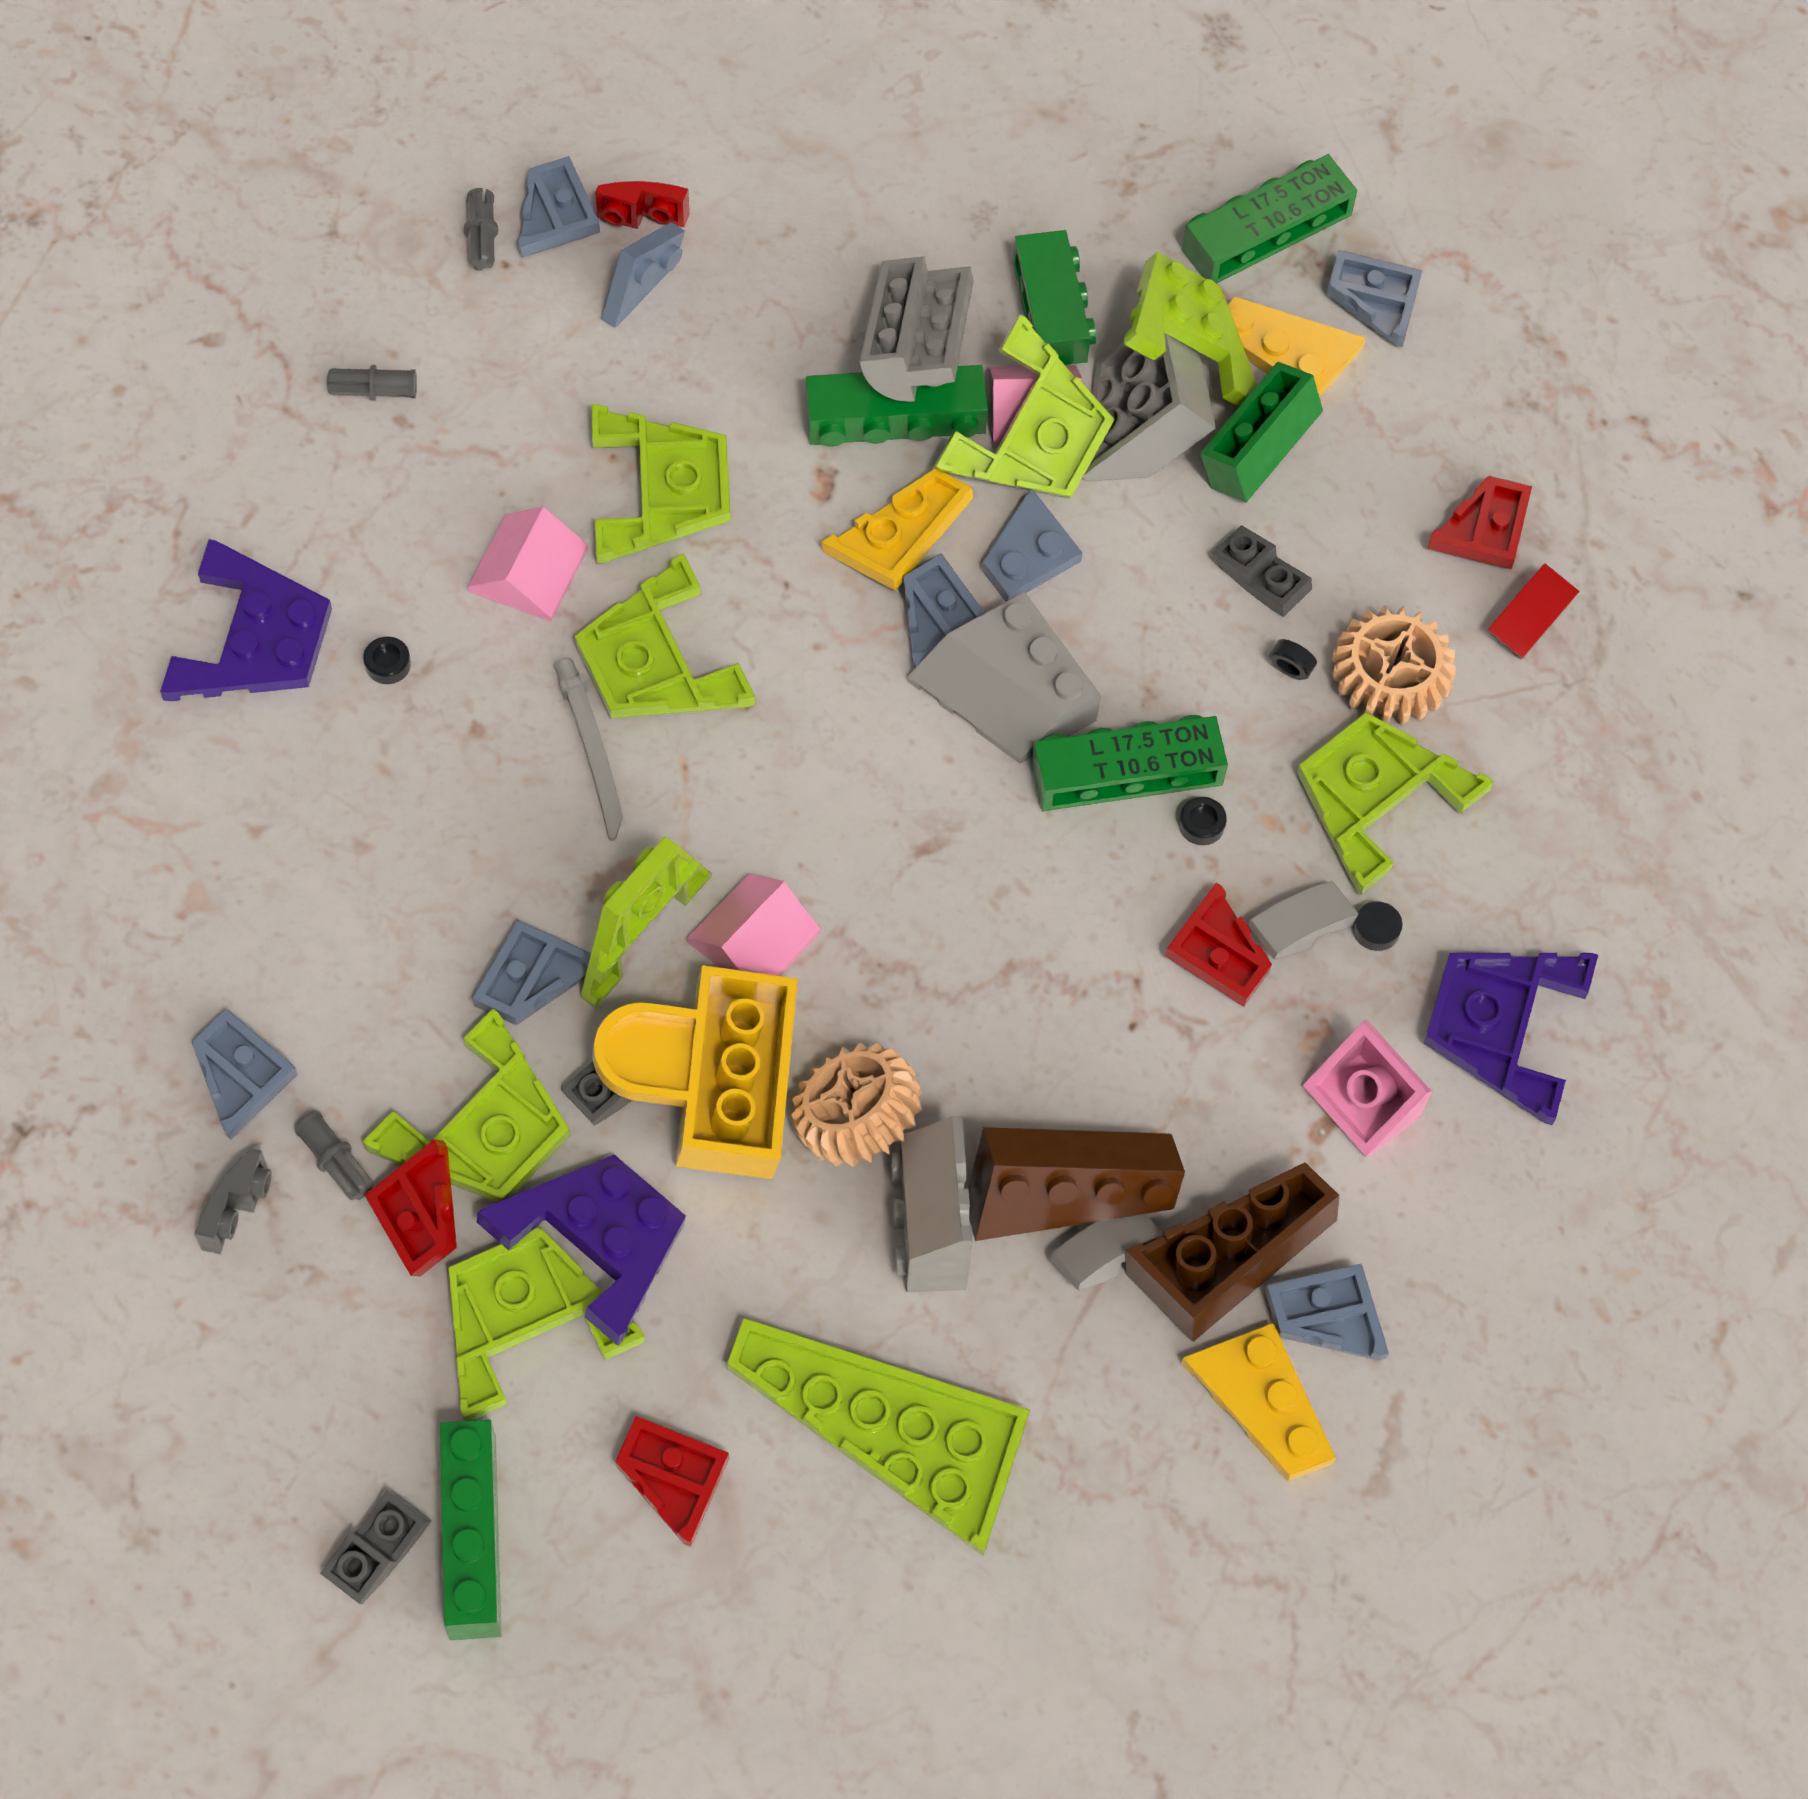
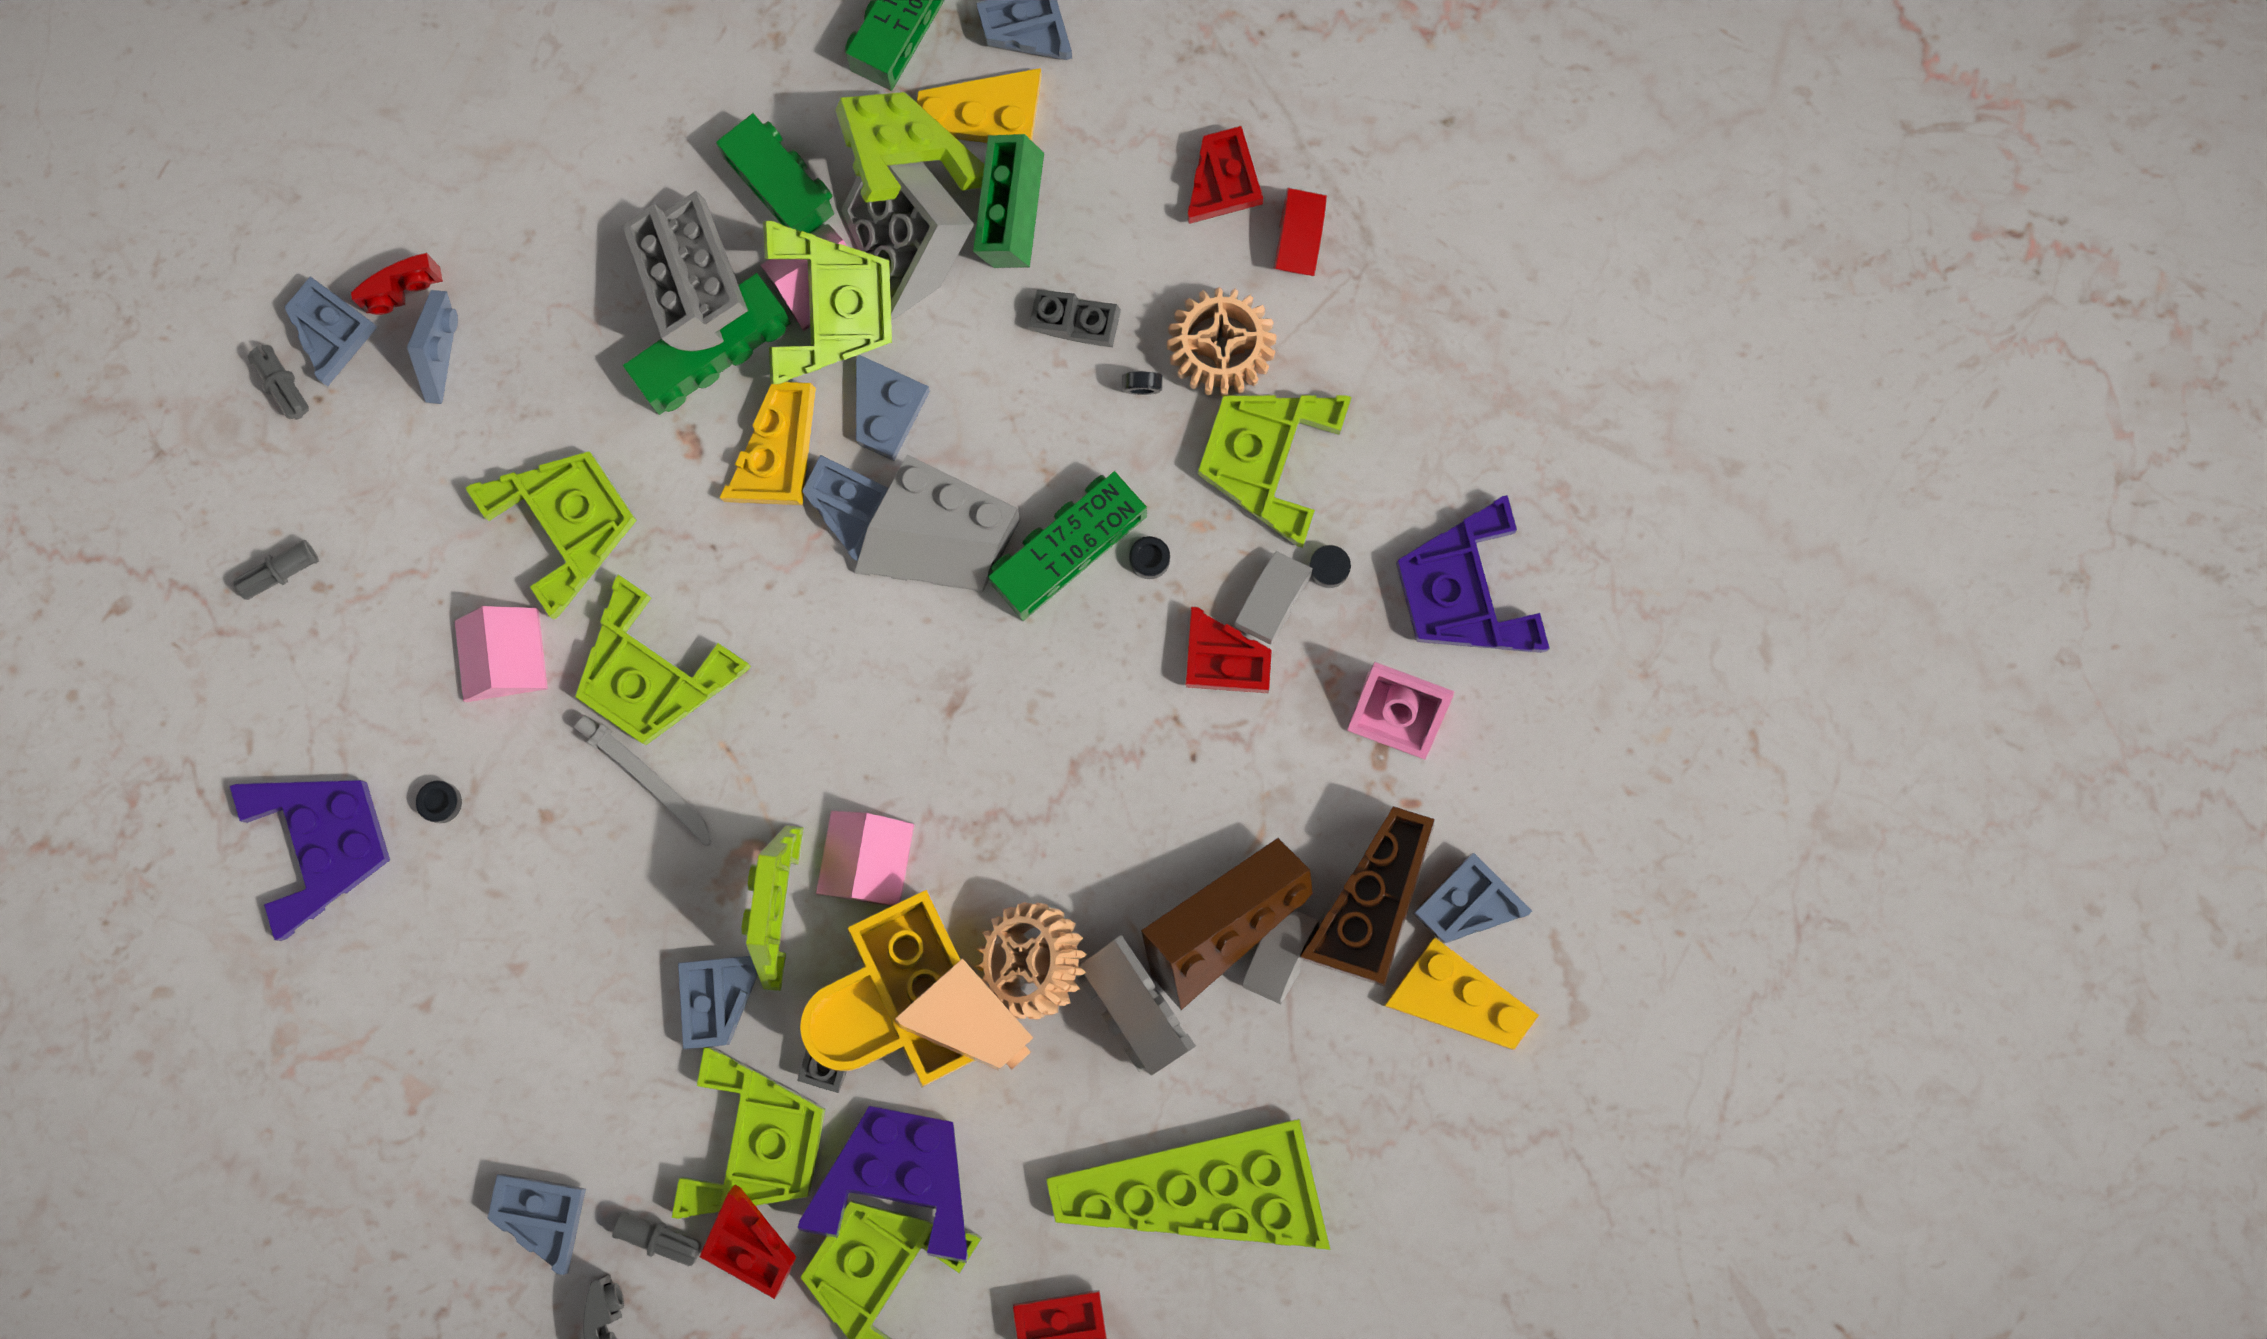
camera: 25 degrees left, 15 degrees up
(763, 1107) = (967, 1019): none -> light nougat slope

